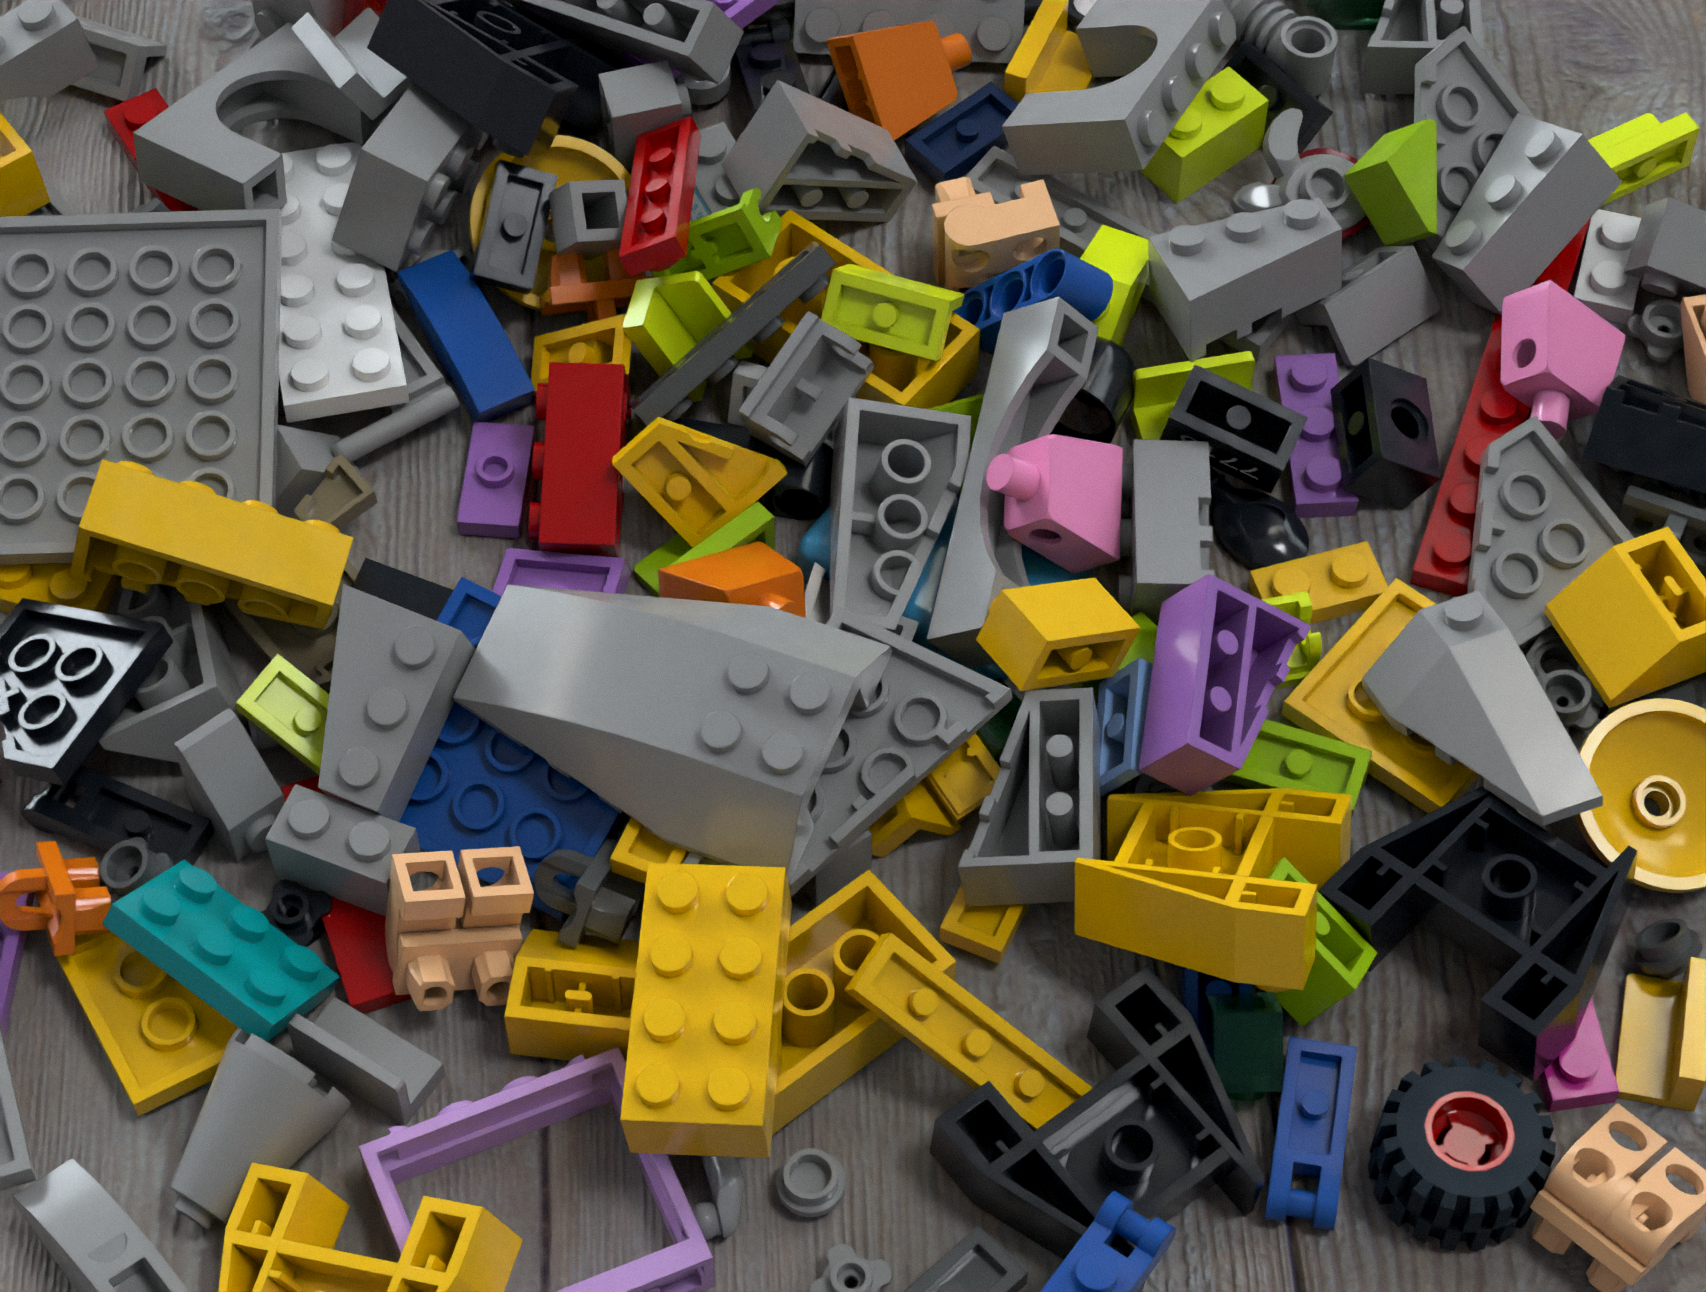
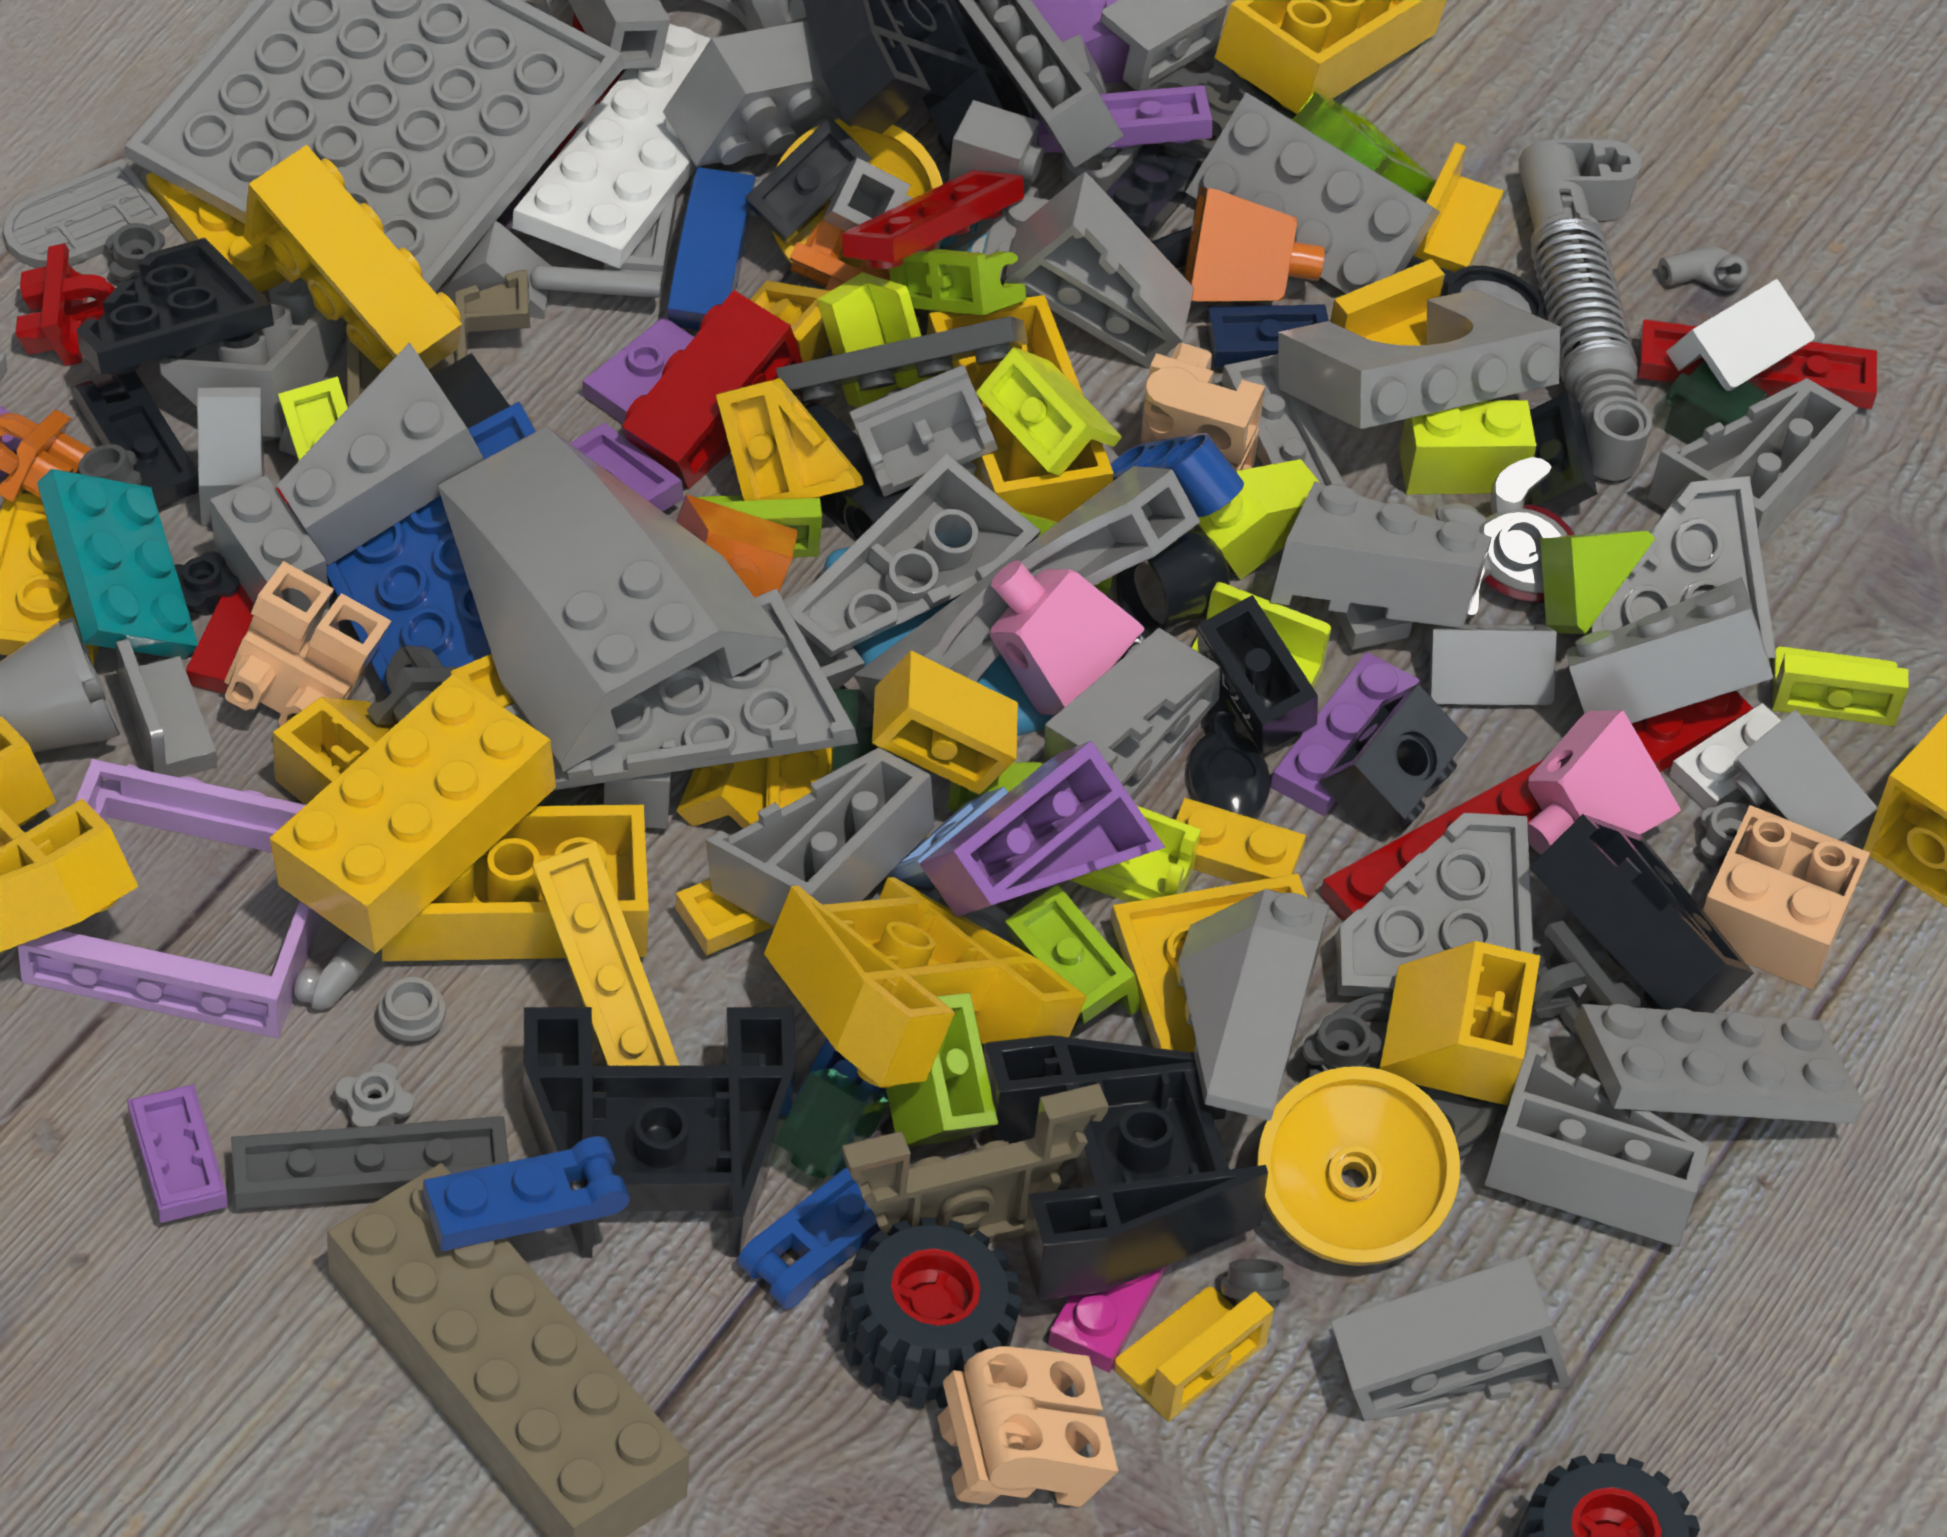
camera: 30 degrees right, 5 degrees down
(1431, 1006) = (980, 1188): none -> dark tan wing

